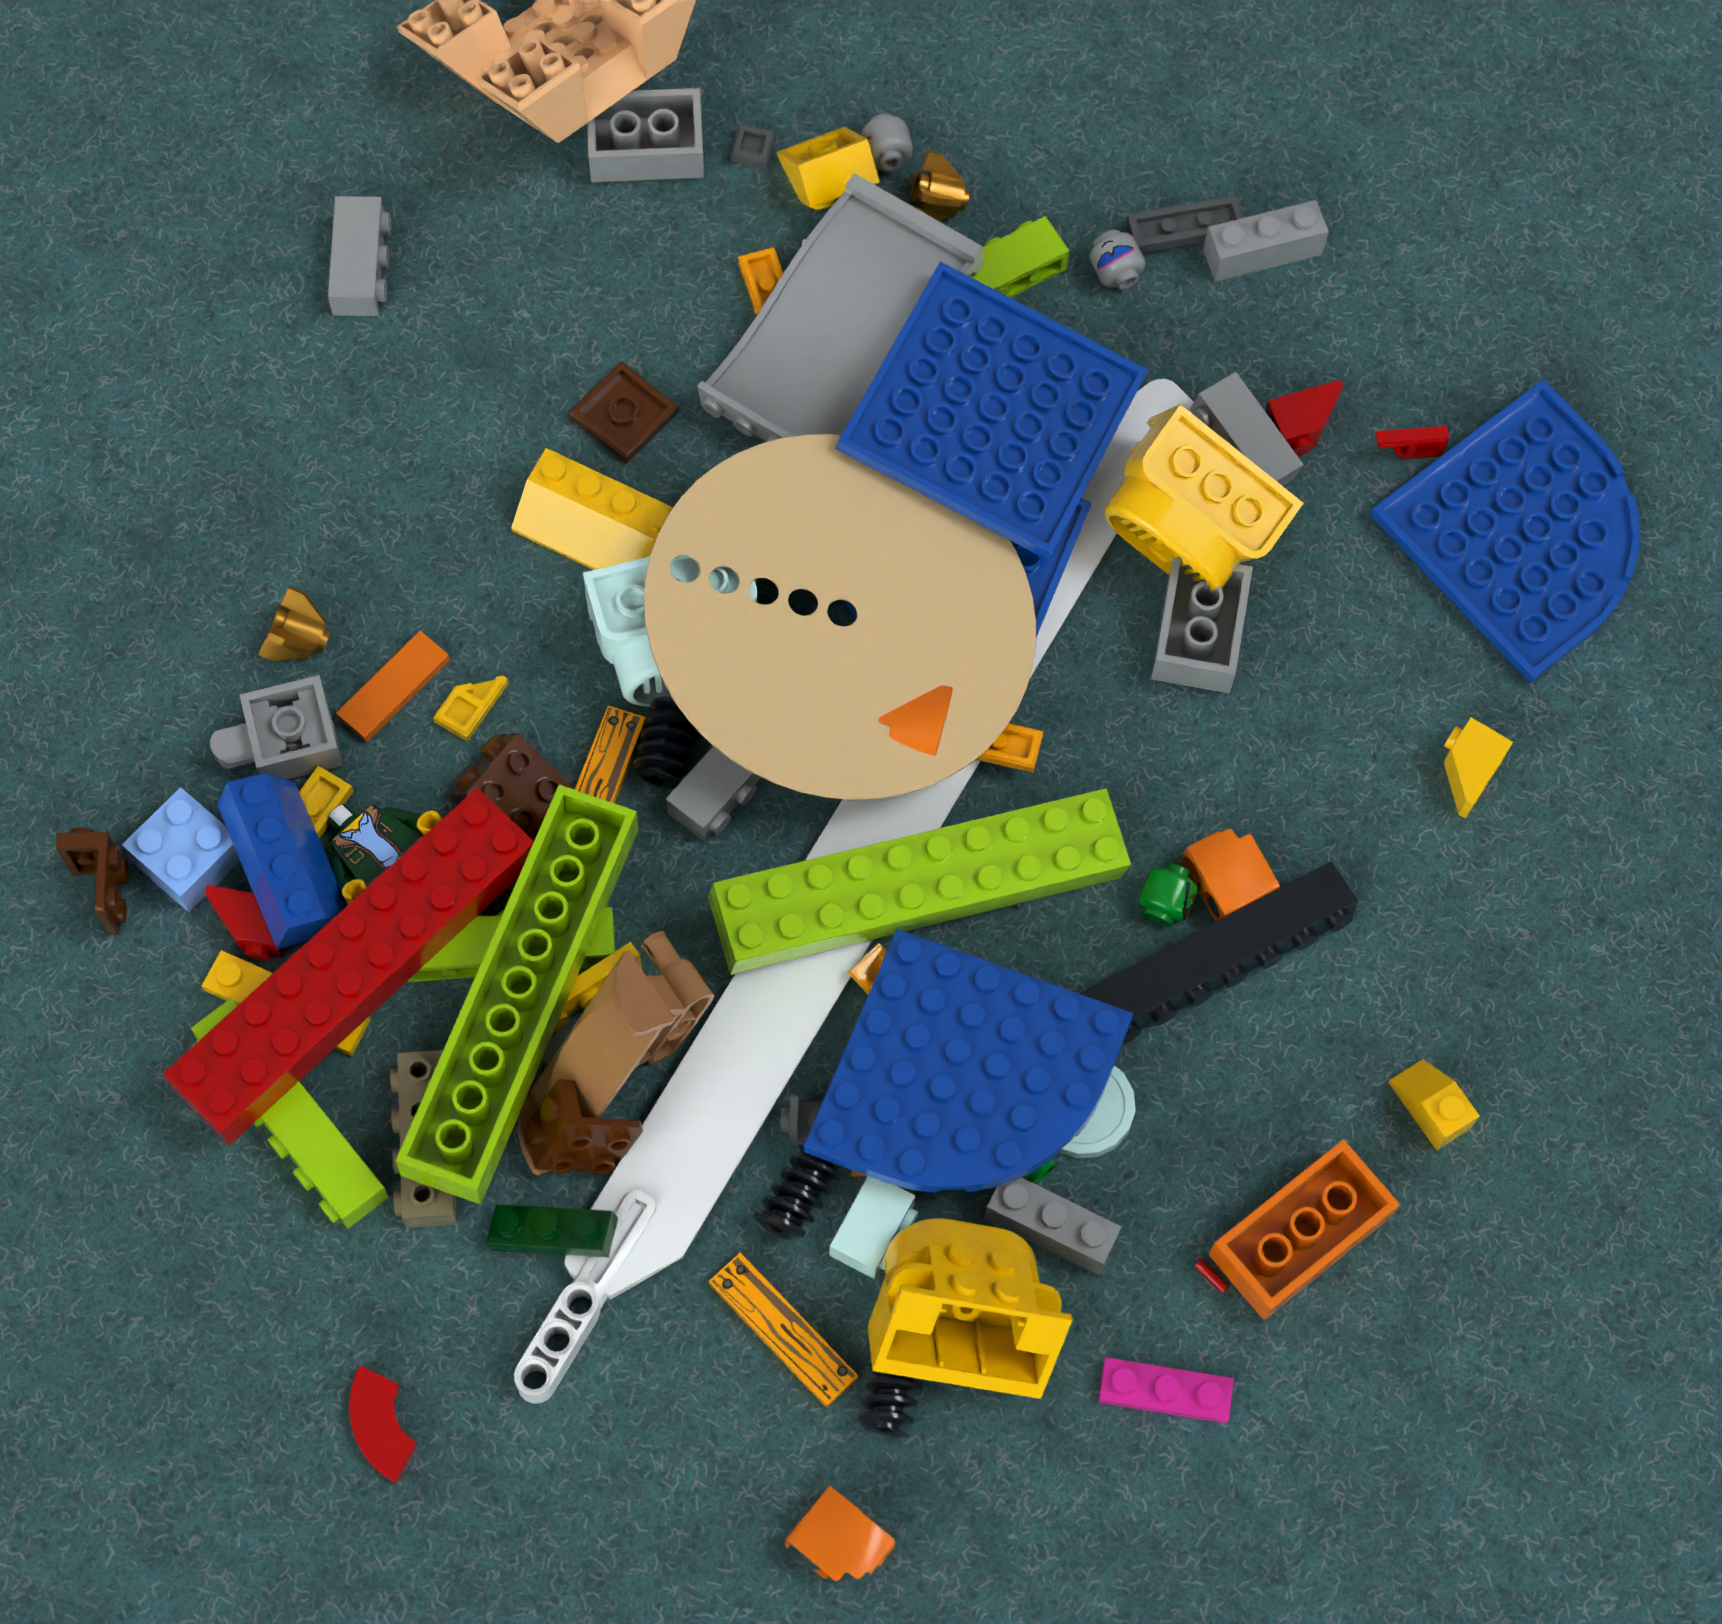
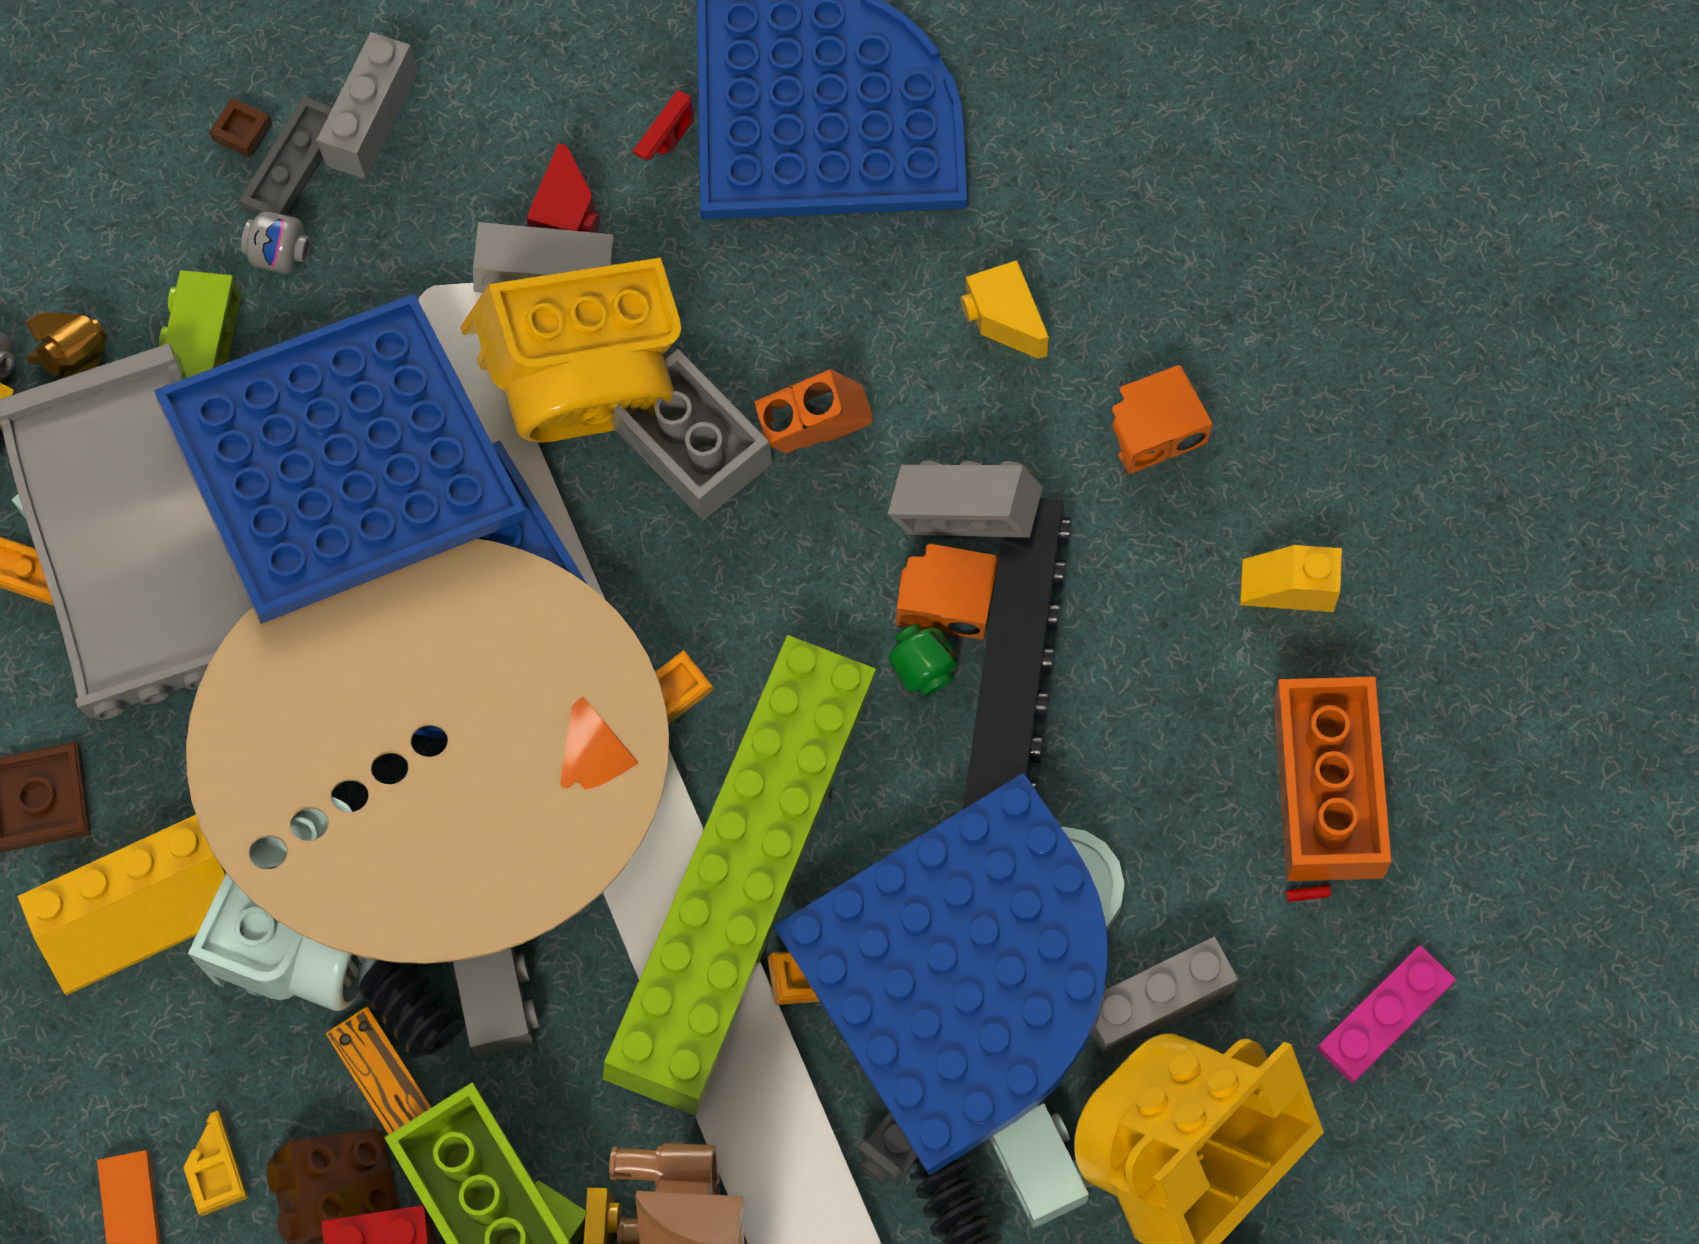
camera: 45 degrees left, 0 degrees up
(1181, 175) = (240, 127): none -> reddish brown plate
(1303, 835) = (965, 499): none -> light grey brick
(1312, 702) = (848, 396): none -> orange piece
(1477, 922) = (1155, 413): none -> orange piece

